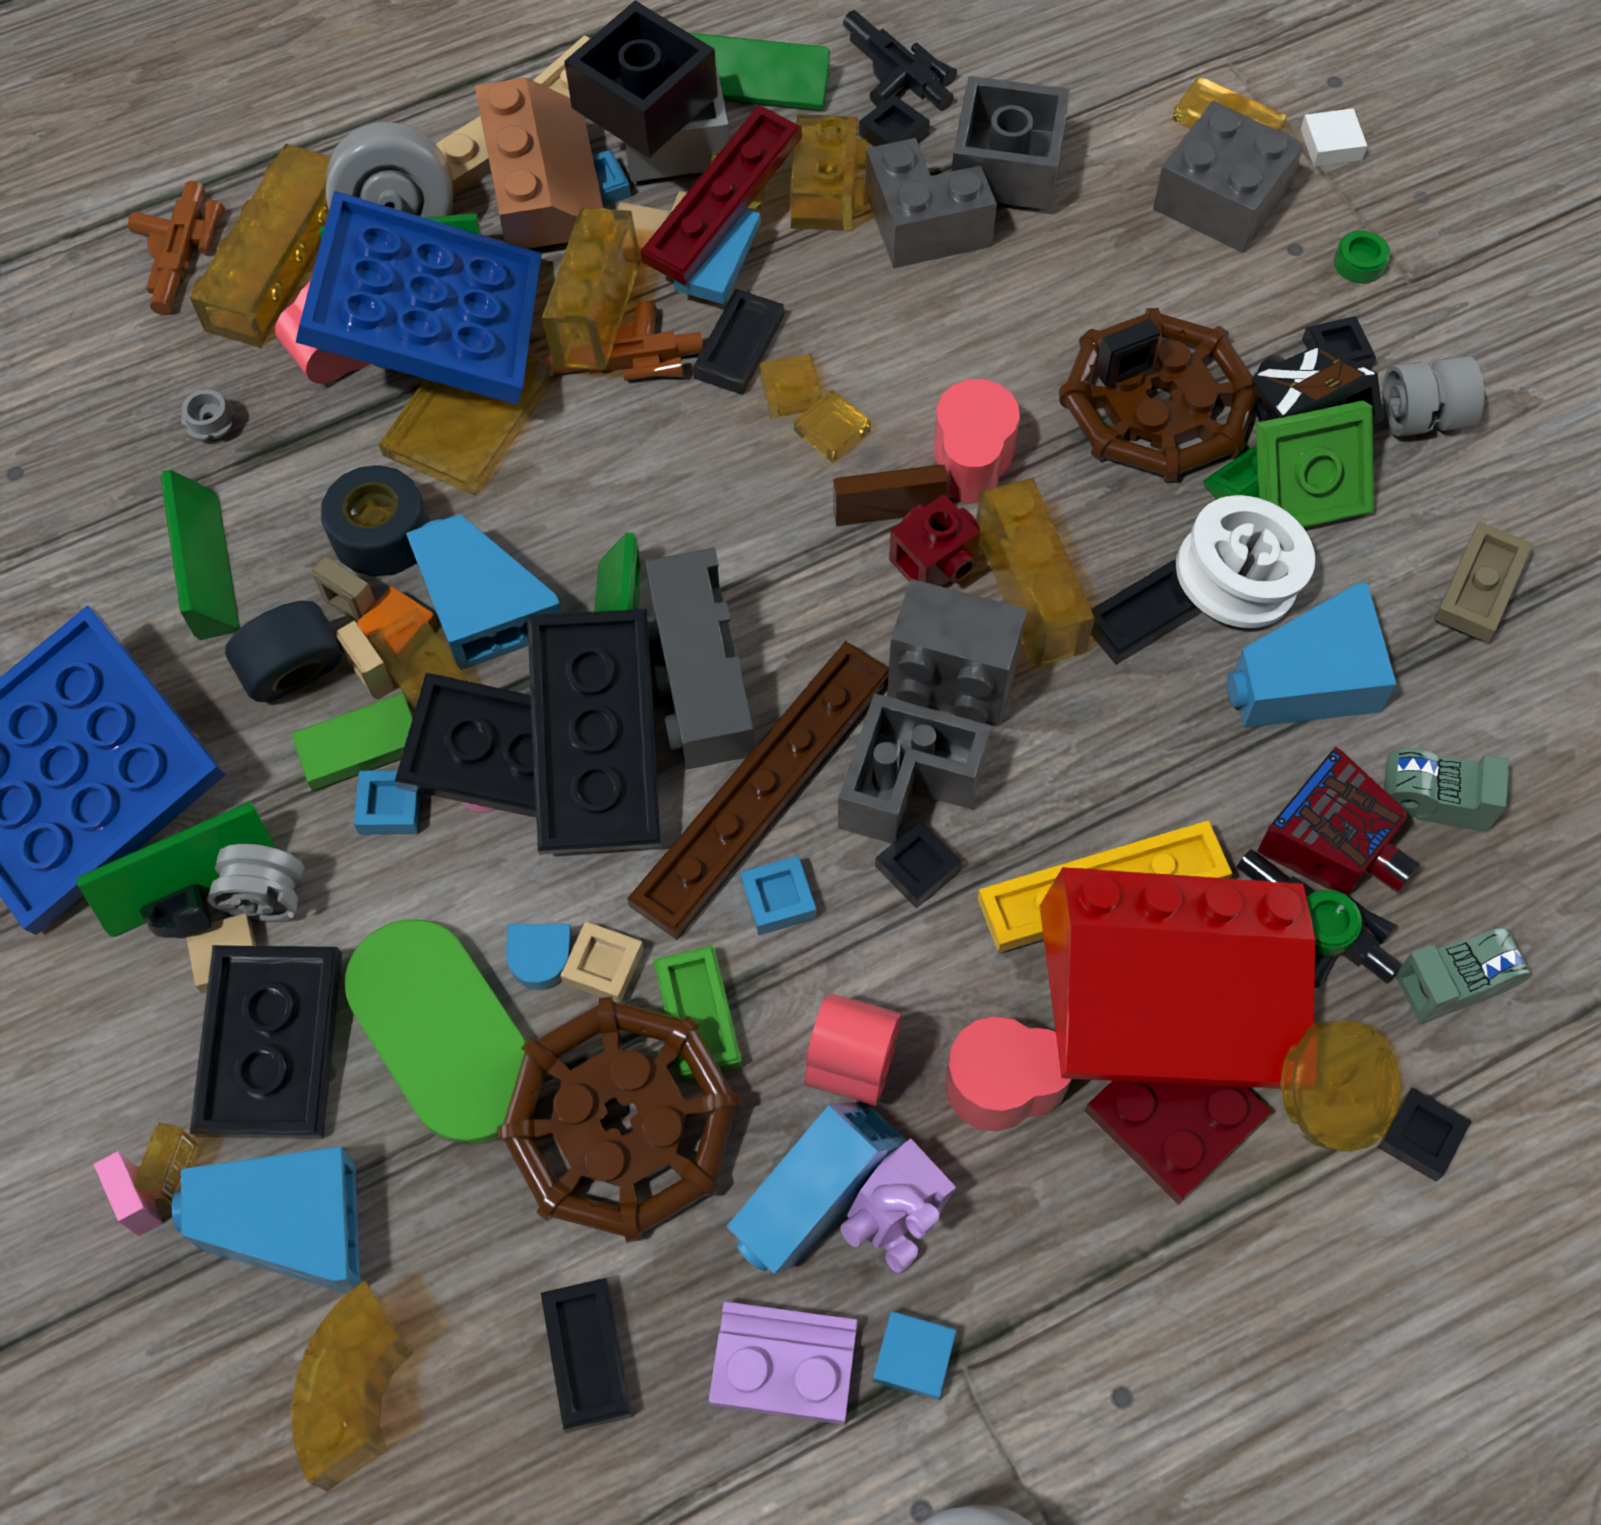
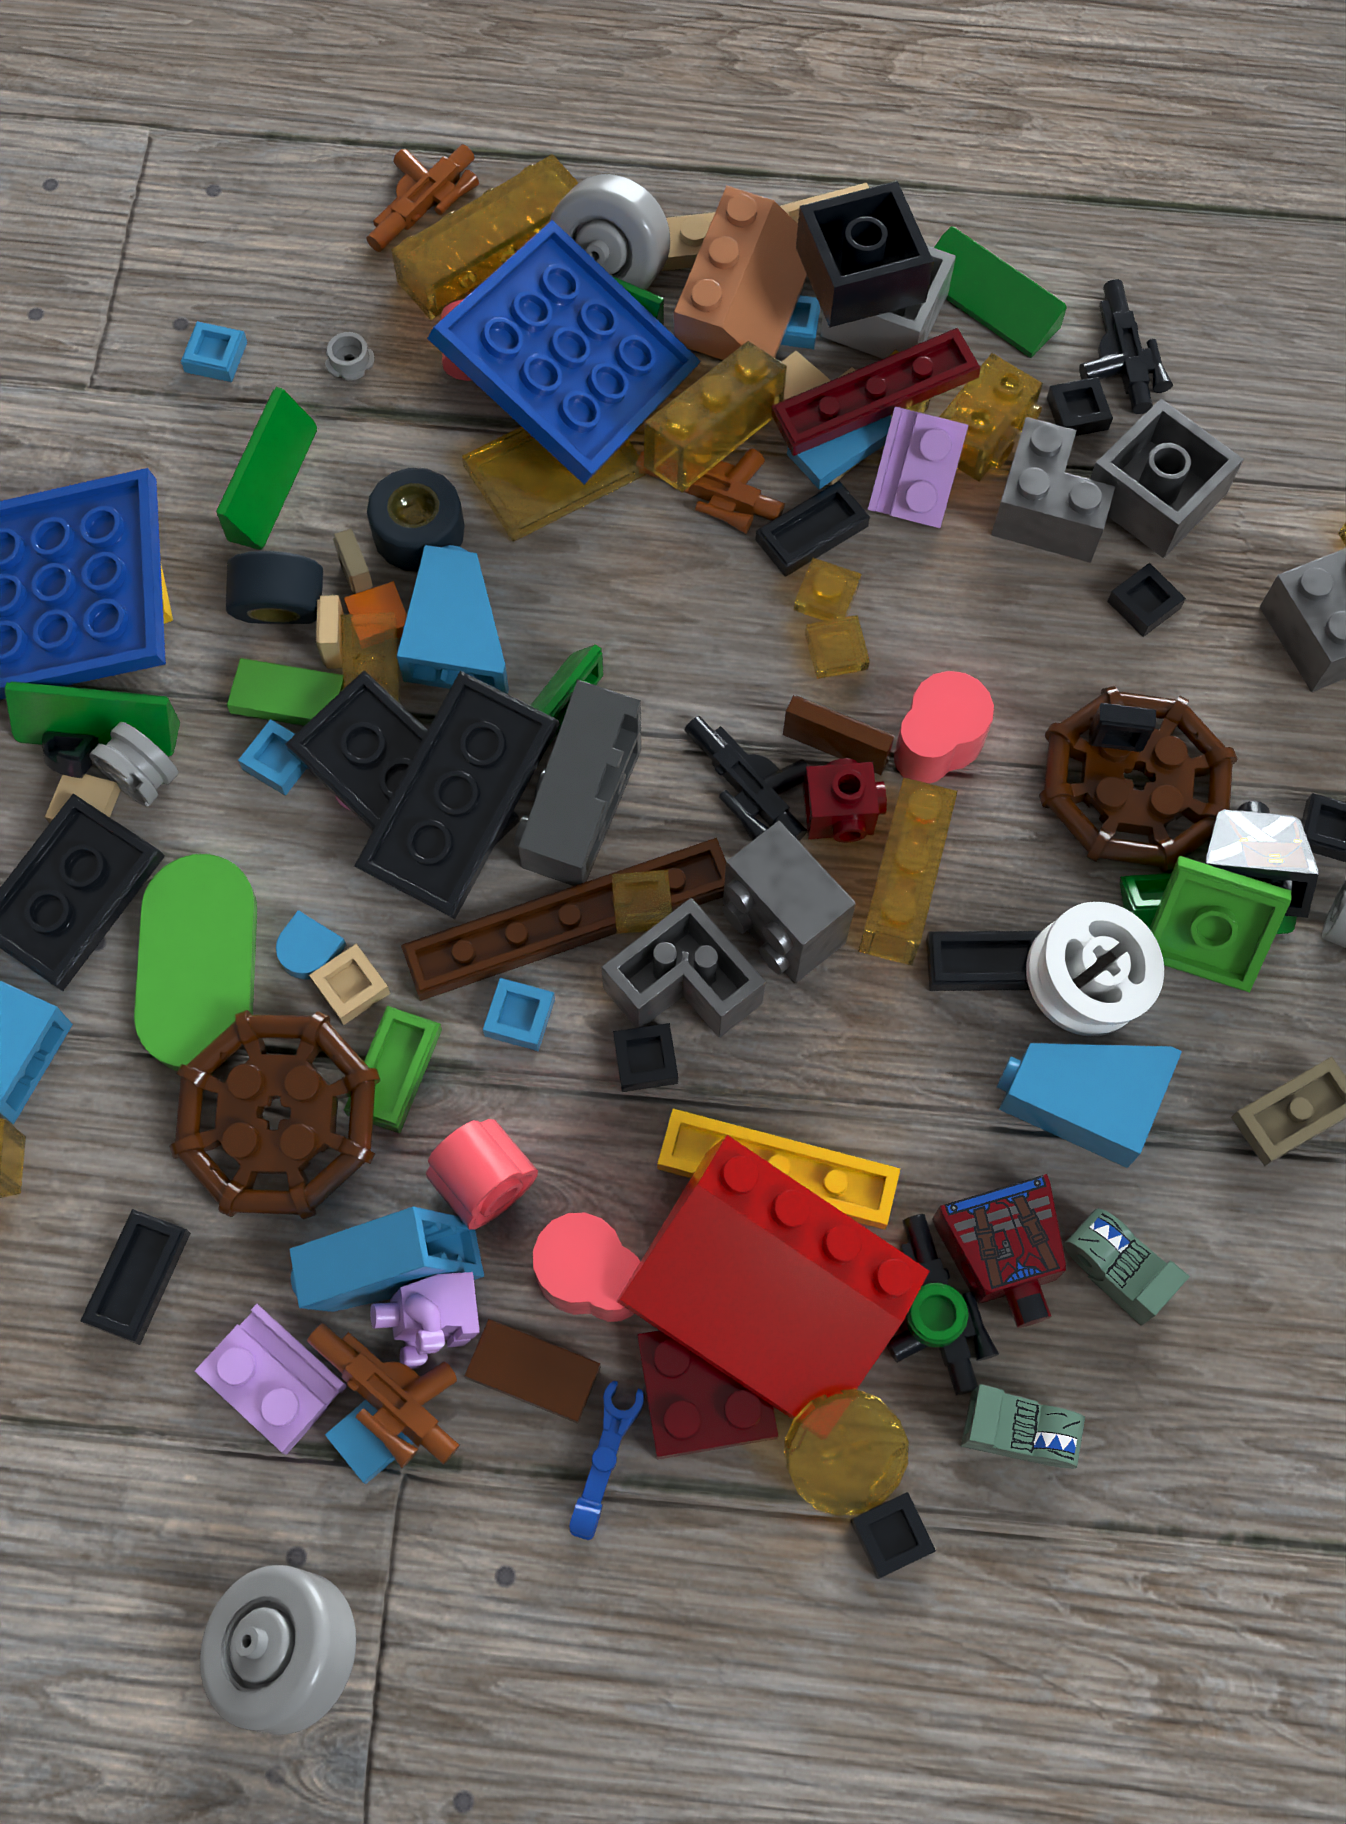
camera: 30 degrees right, 5 degrees up
(68, 479) = (214, 351): none -> dark azure tile
(800, 238) = (918, 467): none -> lavender plate
(822, 729) = (640, 900): none -> clear yellow tile
(839, 575) = (753, 778): none -> black piece
(912, 1297) = (394, 1392): none -> dark orange piece
(1018, 1197) = (533, 1371): none -> reddish brown tile
(1061, 250) = (1146, 599): none -> black tile
(1156, 1286) = (604, 1459): none -> blue piece

